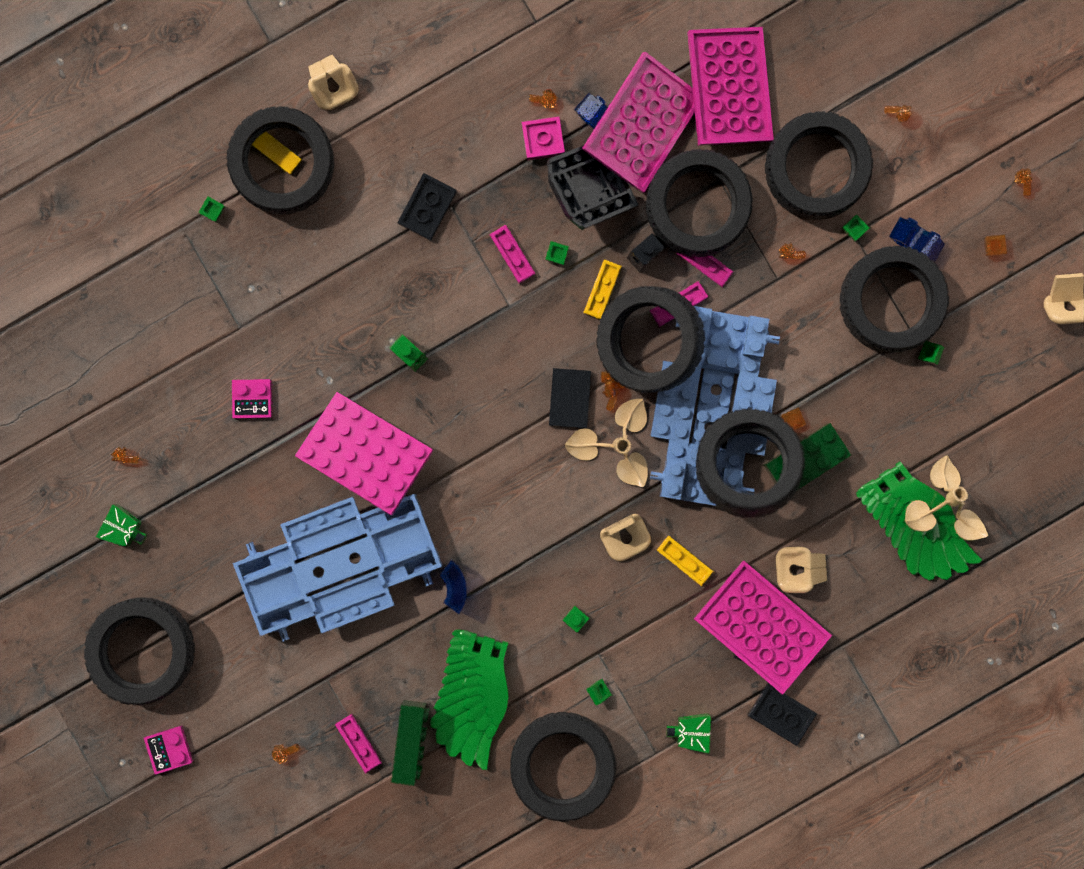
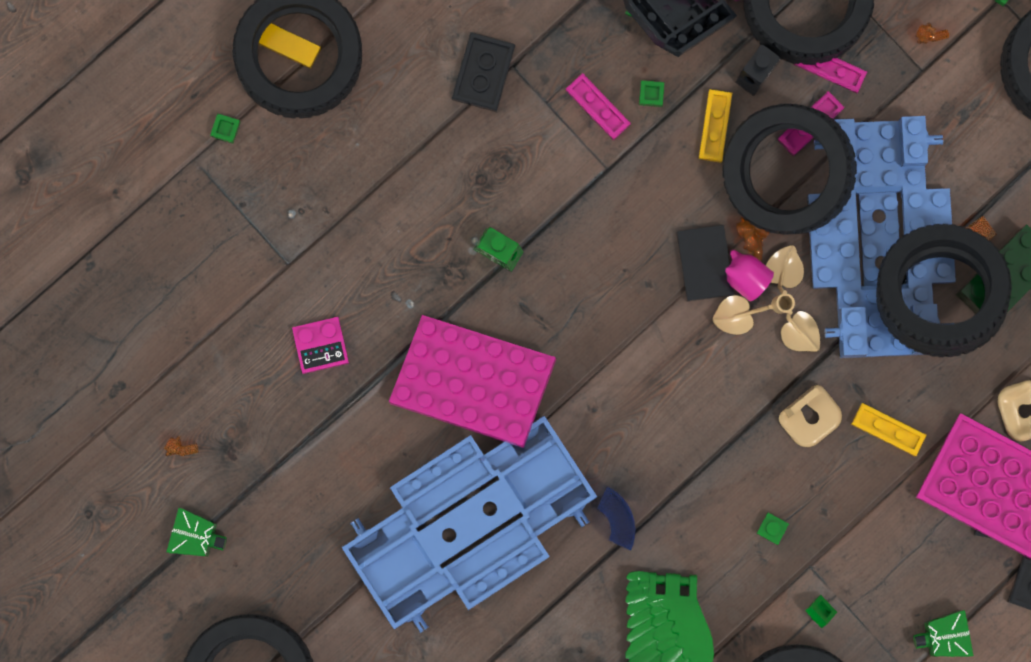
camera: 15 degrees left, 5 degrees down
(600, 416) = (748, 275): none -> dark pink piece

